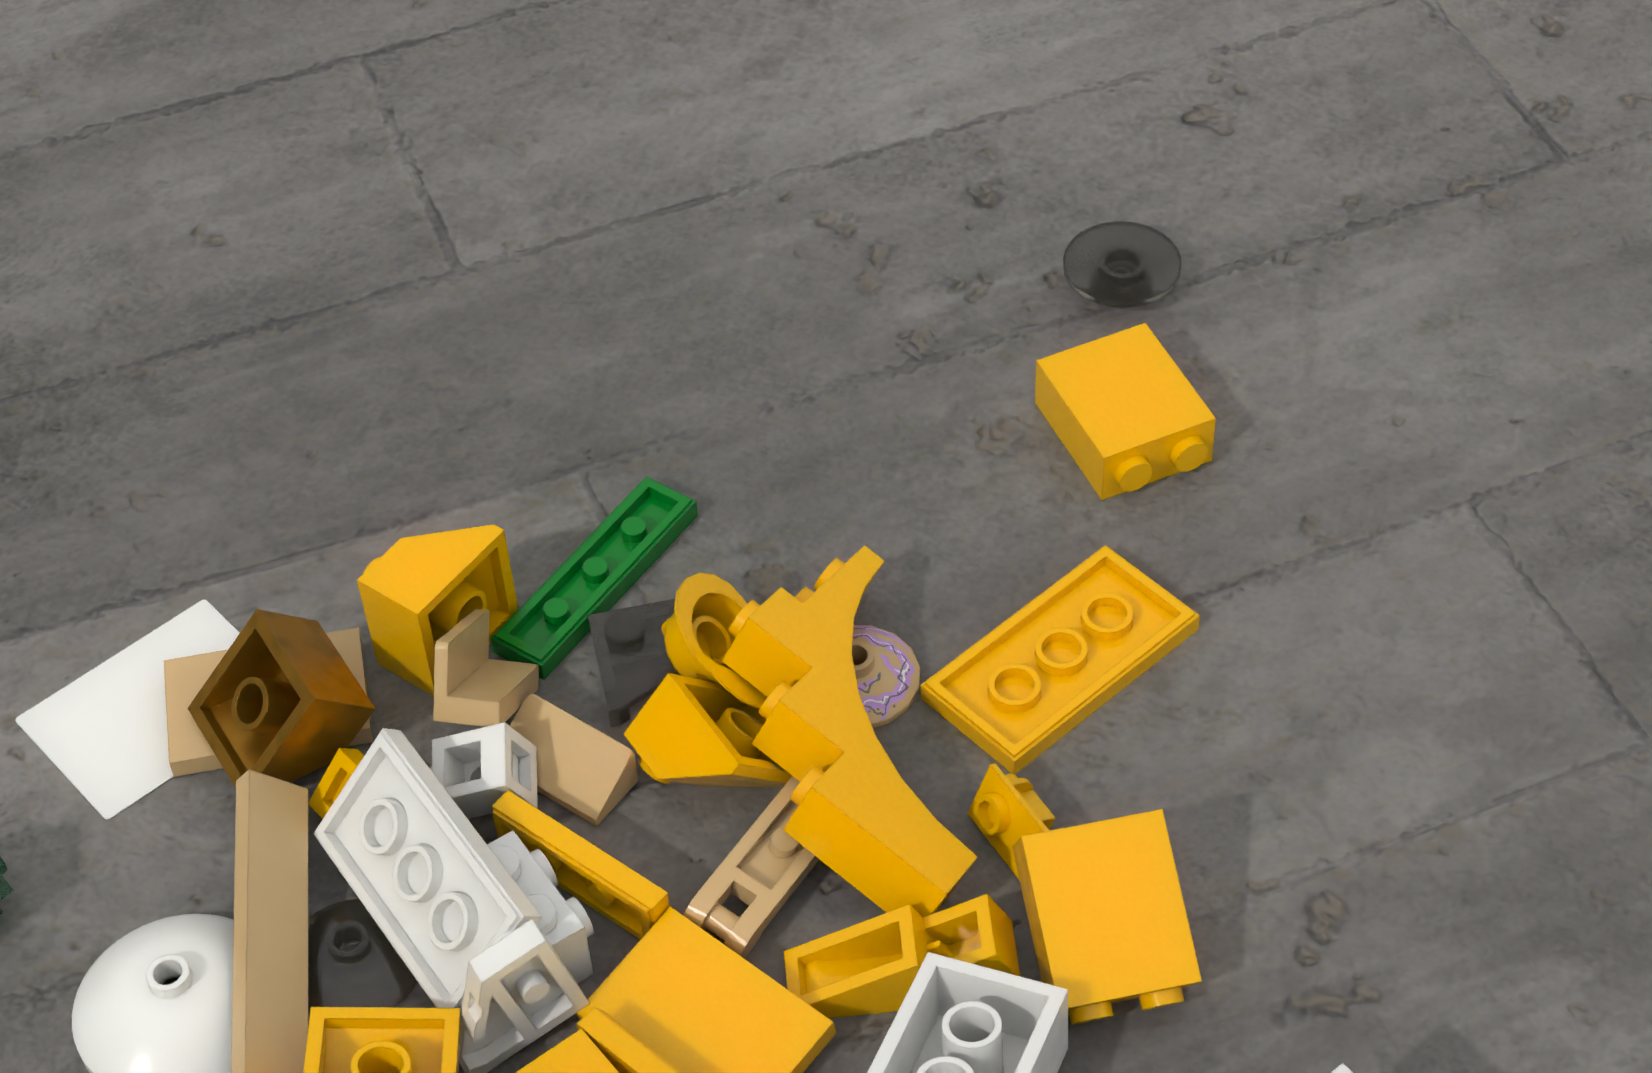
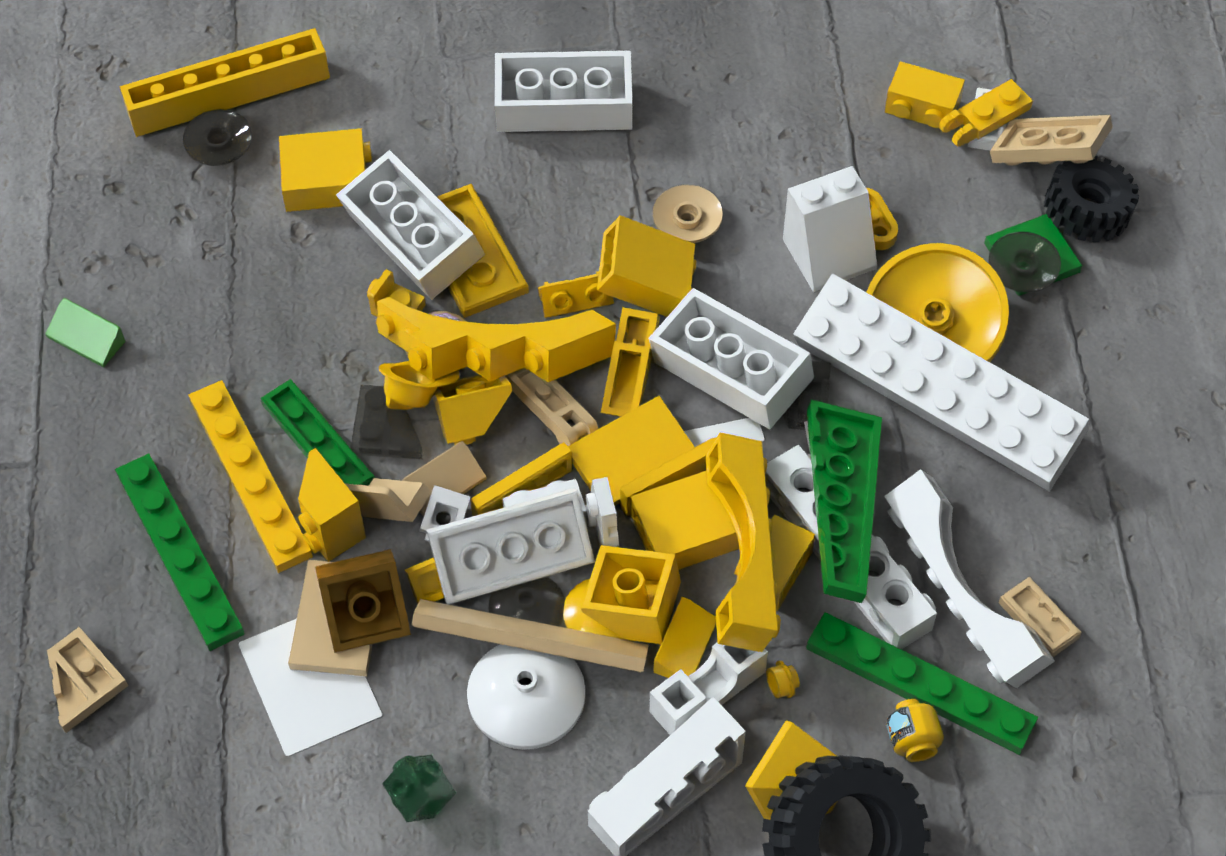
camera: 75 degrees left, 10 degrees up
(95, 432) = (81, 678): none -> tan wing
(339, 476) = (180, 552): none -> green plate
(547, 478) = (250, 476): none -> yellow plate
(695, 245) = (85, 332): none -> slope
(905, 585) = (385, 287): none -> yellow bracket
(1040, 543) = (410, 224): none -> white brick
(1233, 236) = (225, 81): none -> yellow brick
(1288, 936) = (692, 204): none -> tan dish
(1463, 678) = (563, 91): none -> white brick

